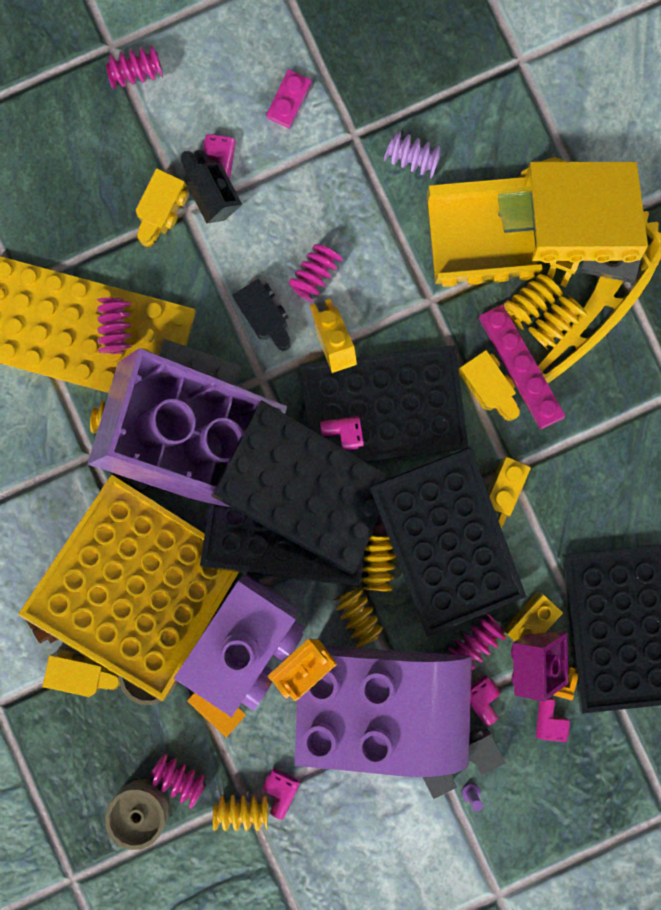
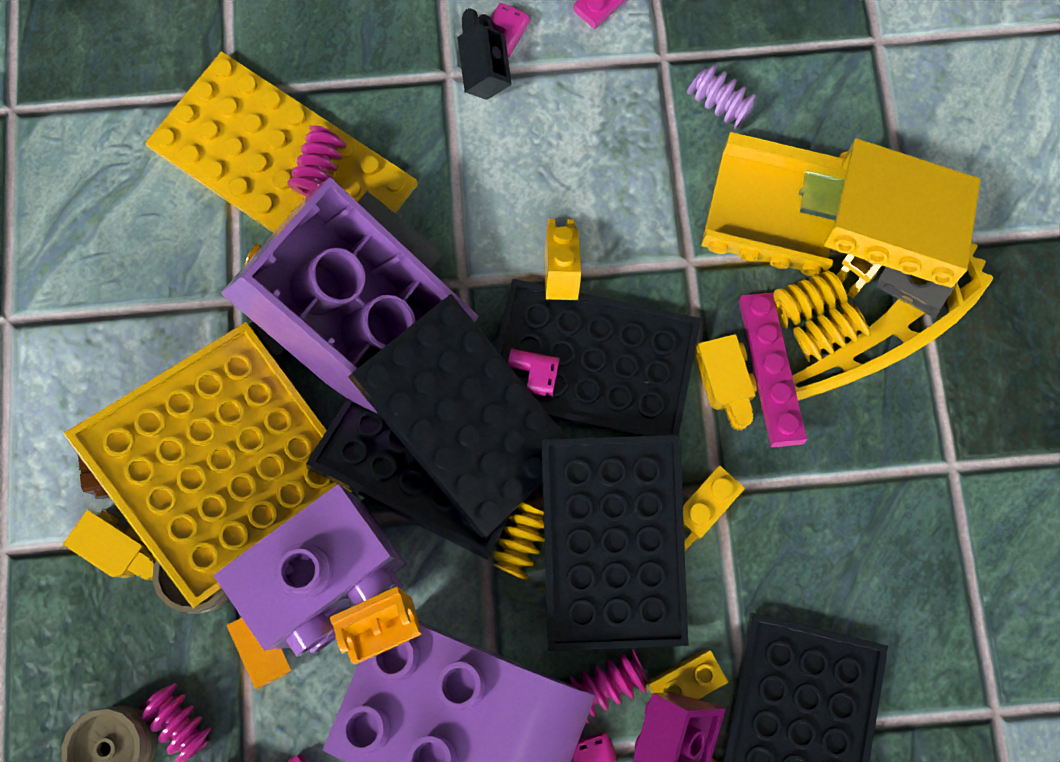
camera: 20 degrees right, 10 degrees down
(159, 206) = (420, 59): yellow hinge -> none
(263, 314) = (491, 210): black hinge -> none
(313, 271) = (566, 181): dark pink piece -> none
(358, 617) = (472, 598): yellow piece -> none

